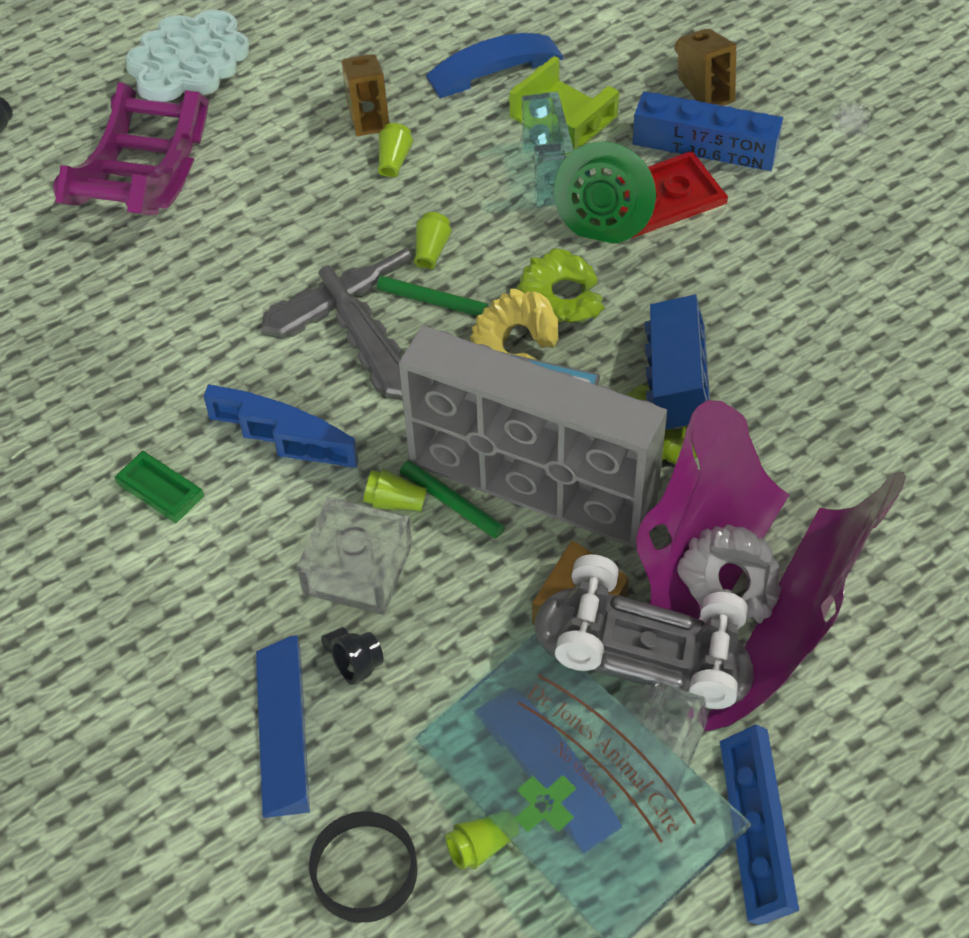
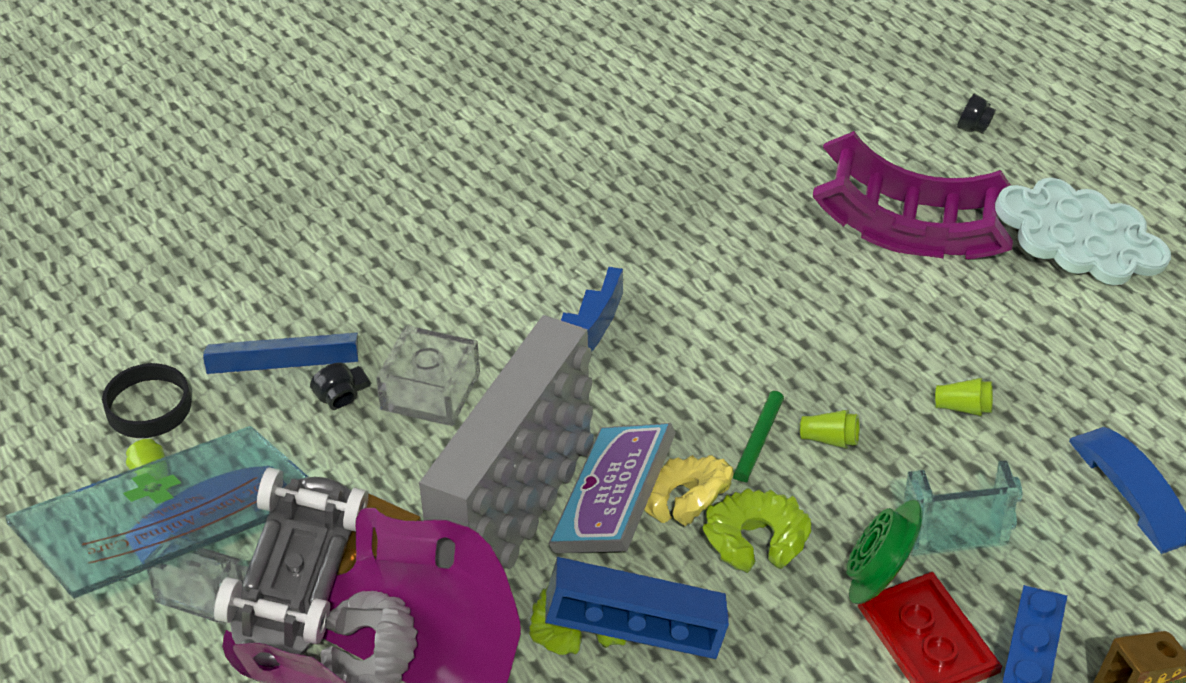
camera: 90 degrees right, 10 degrees down
(159, 486) = (532, 264): green tile -> none
(314, 305) = (749, 350): flat silver sword -> none
(363, 83) = (1041, 361): pearl gold torso -> none
(368, 335) = (699, 384): flat silver sword -> none
(582, 113) = (1061, 541): lime panel -> none
(764, 848) = (96, 656): blue plate -> none

